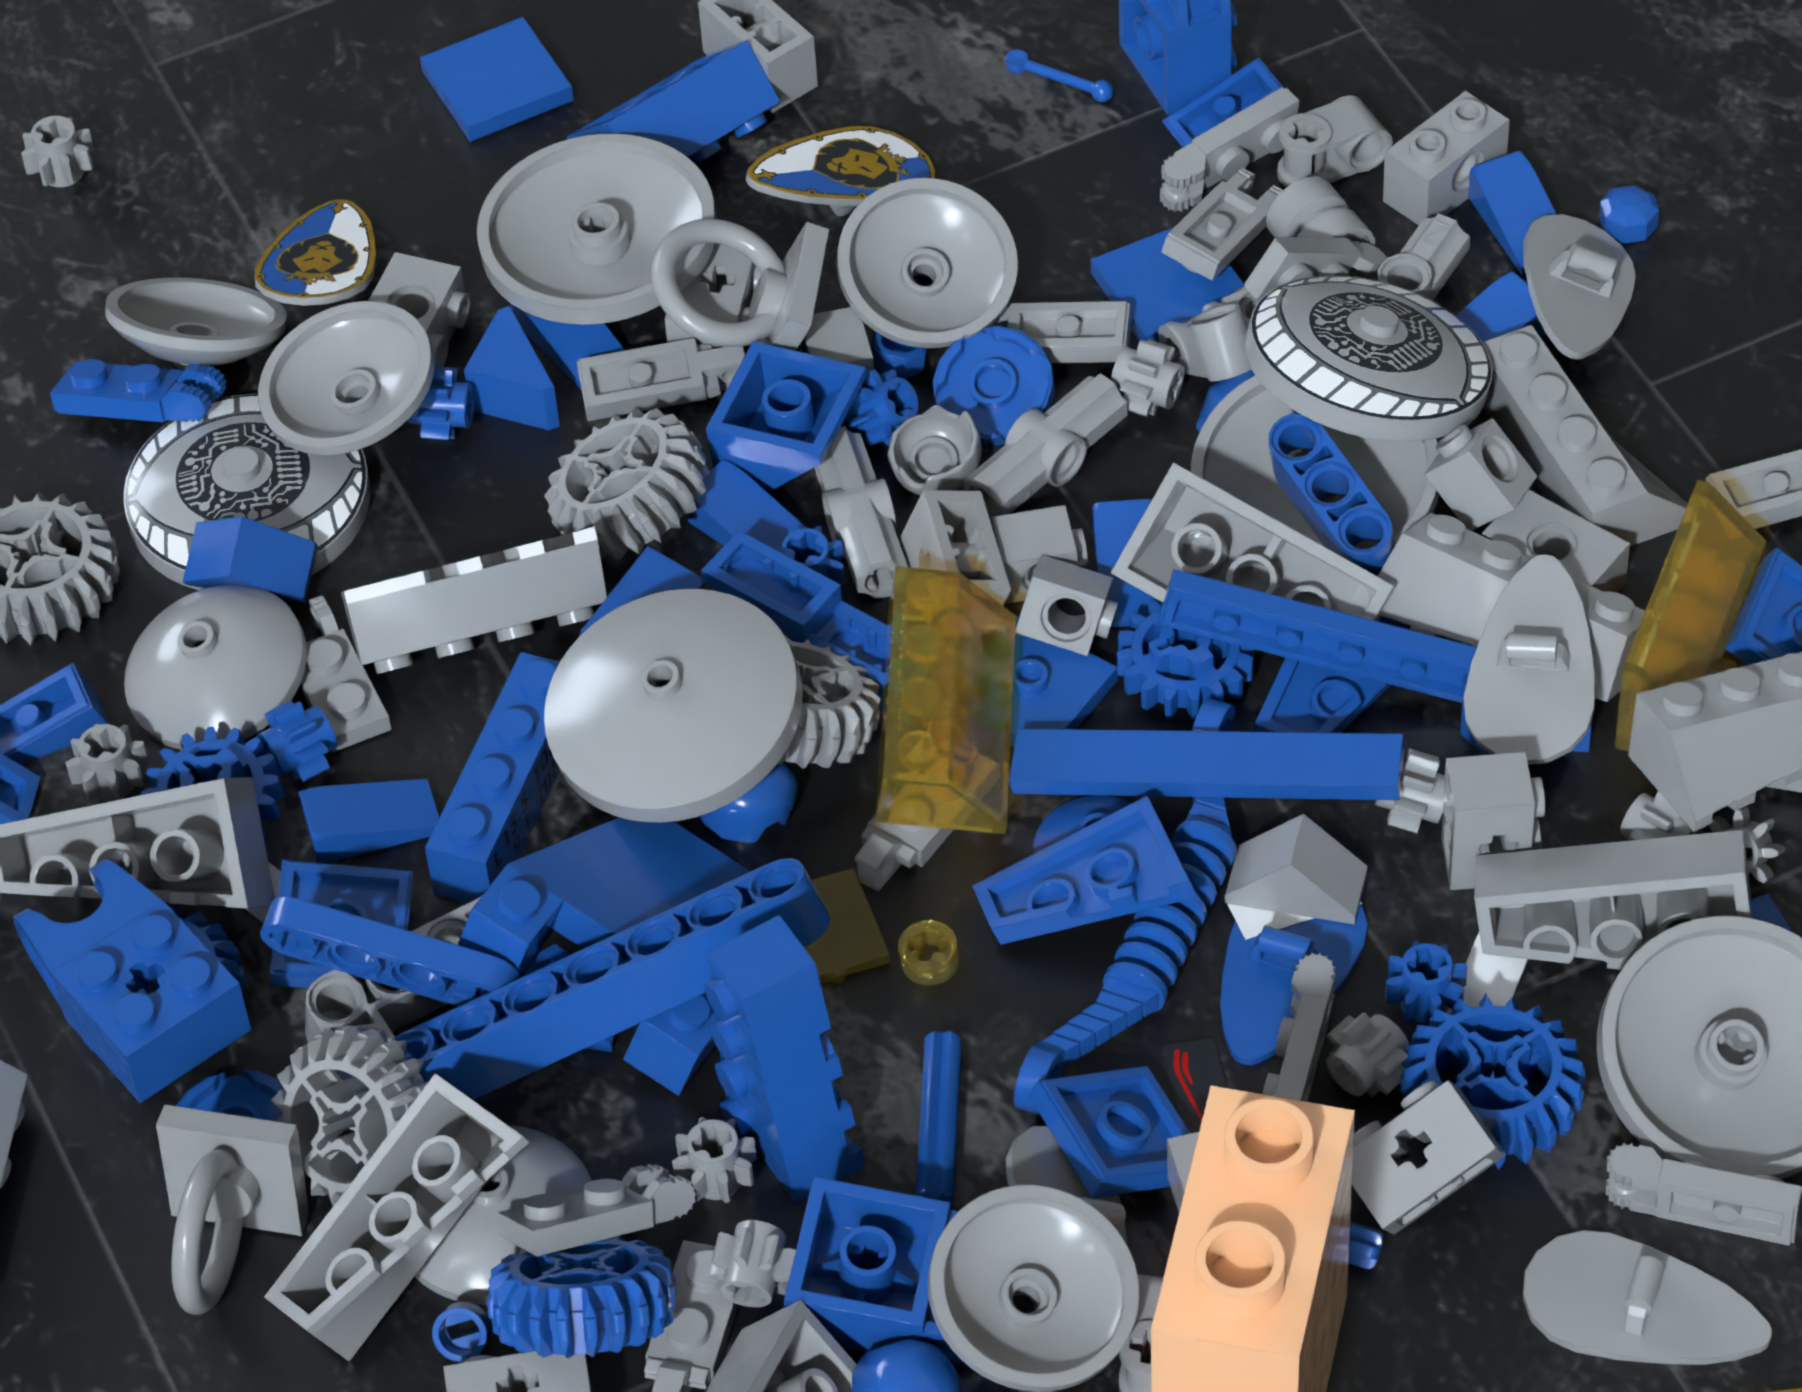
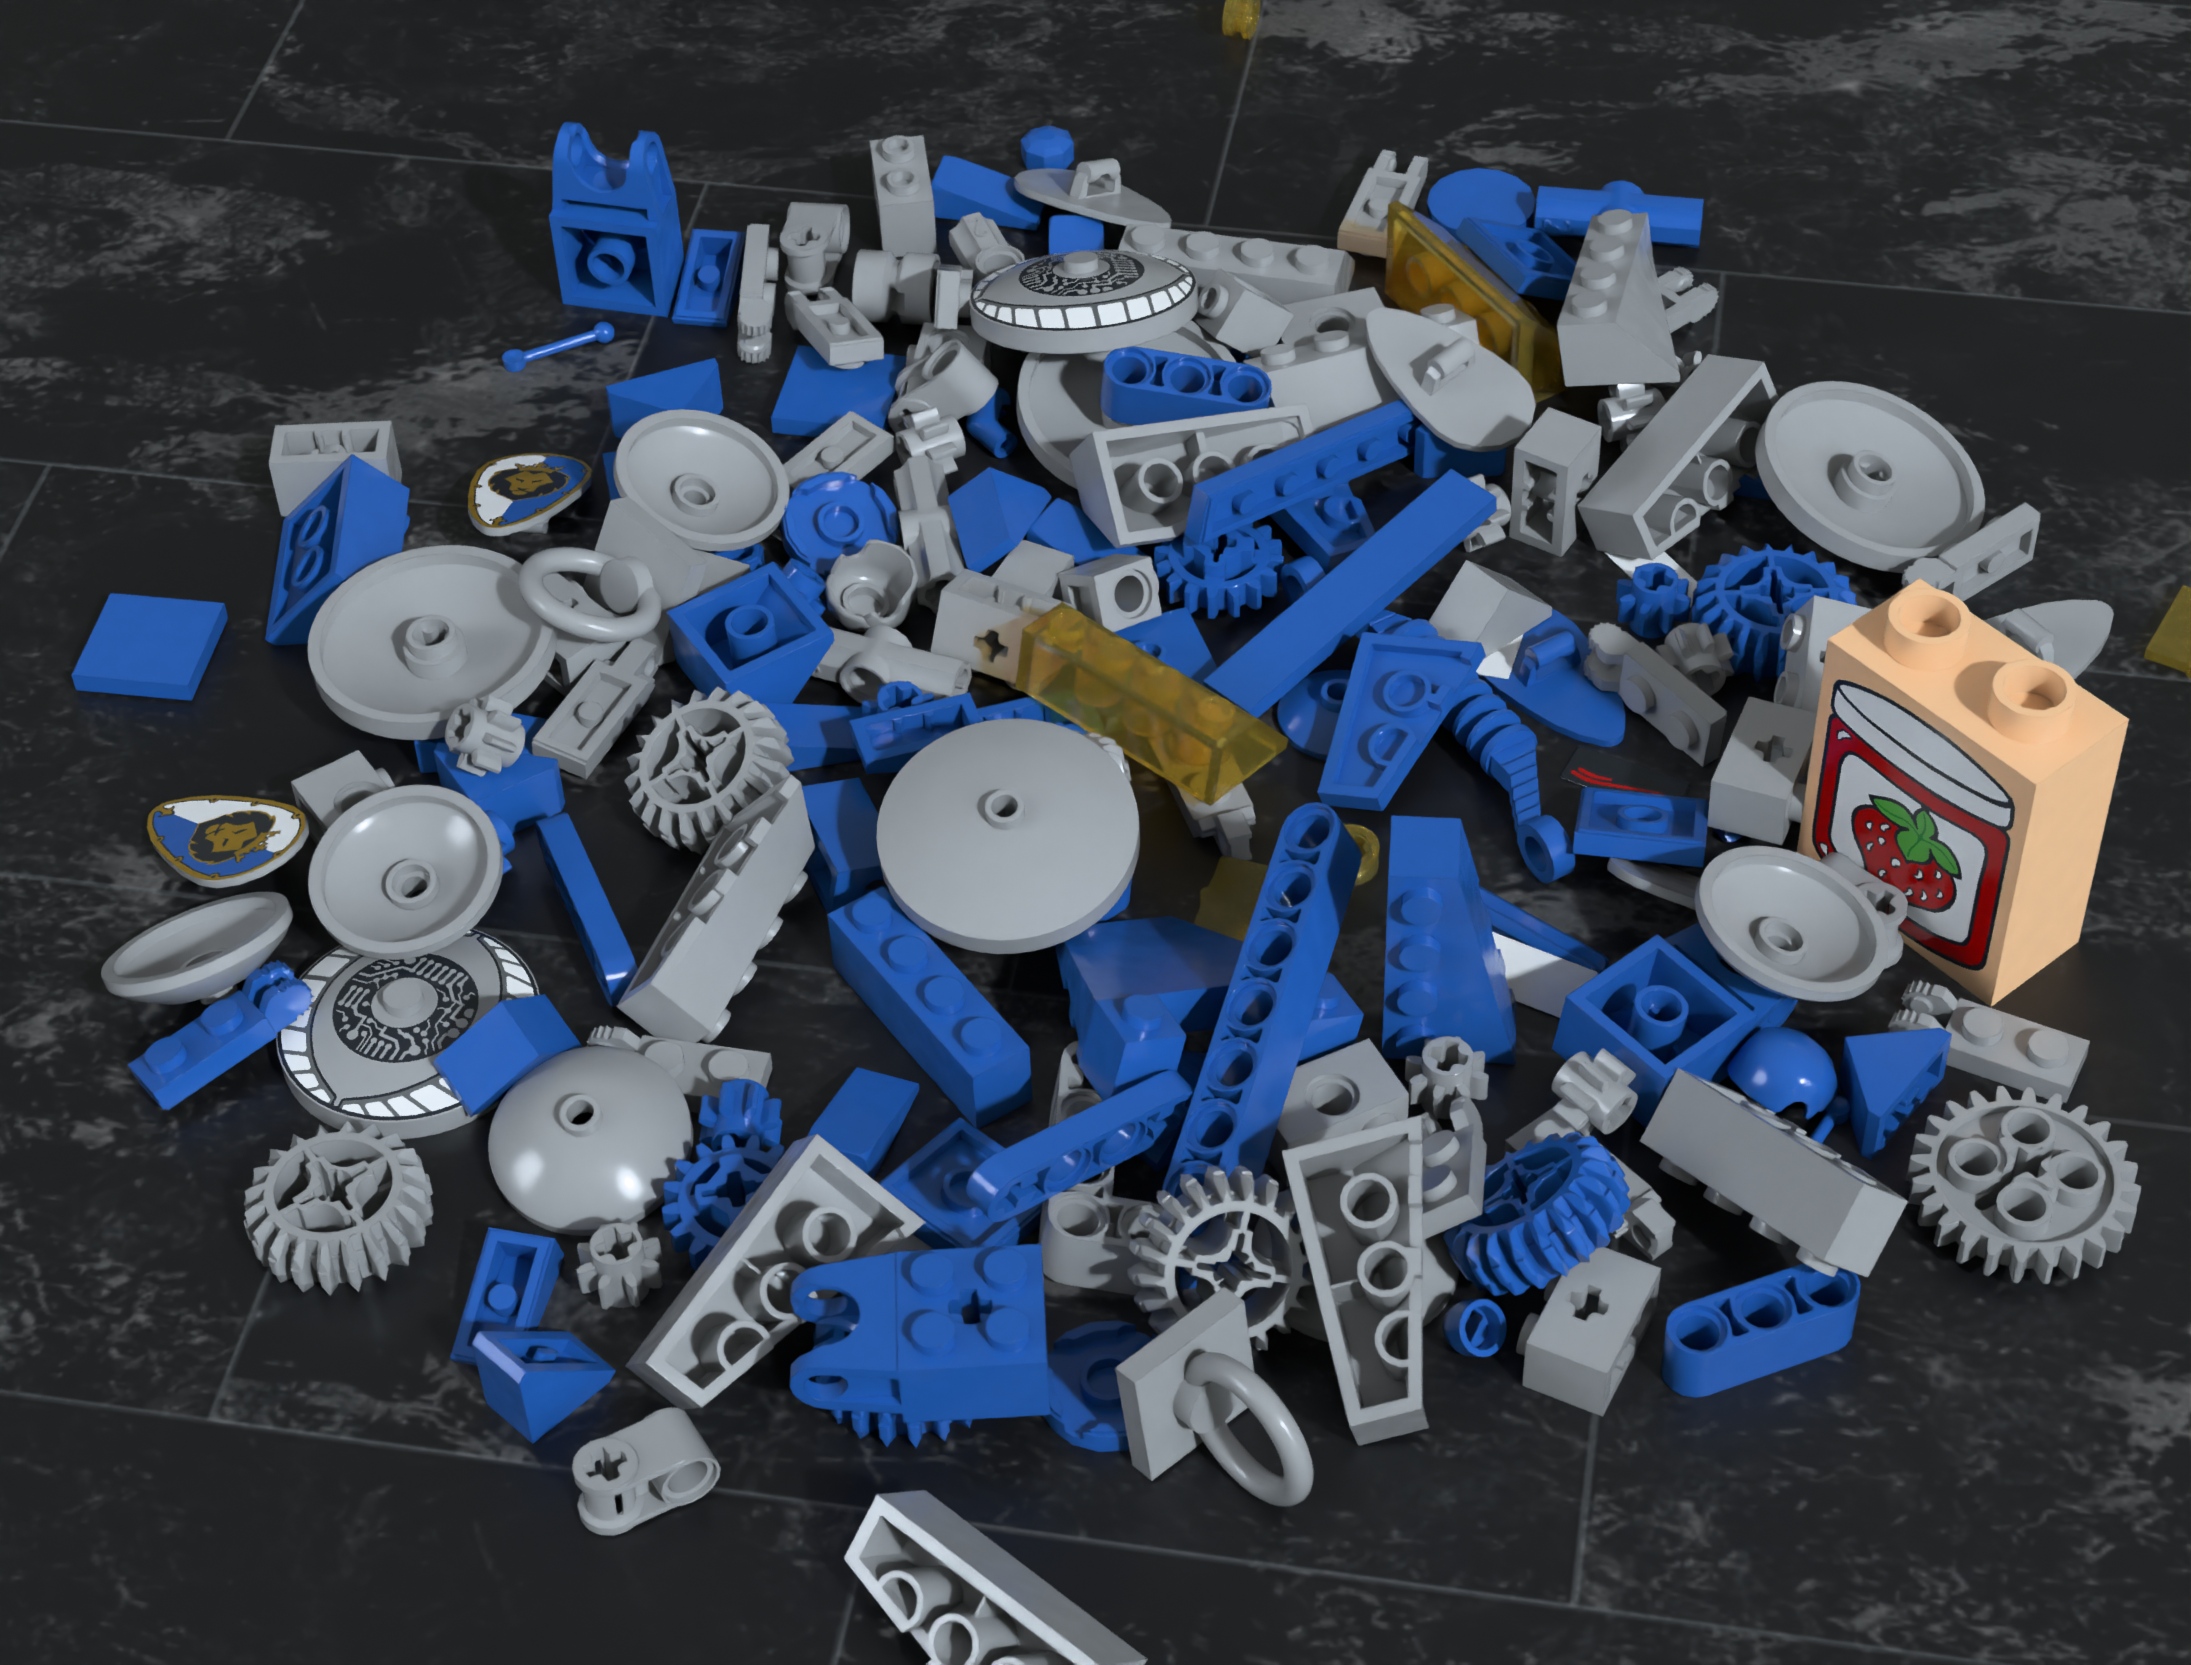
camera: 55 degrees left, 5 degrees down
(445, 504) = (587, 905): none -> blue beam
(511, 325) = (485, 735): none -> light grey gear
(648, 1100) = (1338, 1097): none -> light grey brick
(890, 1146) = (1540, 977): none -> white sticker
(1040, 190) = (684, 387): none -> blue slope
(1081, 470) = (994, 515): none -> blue slope

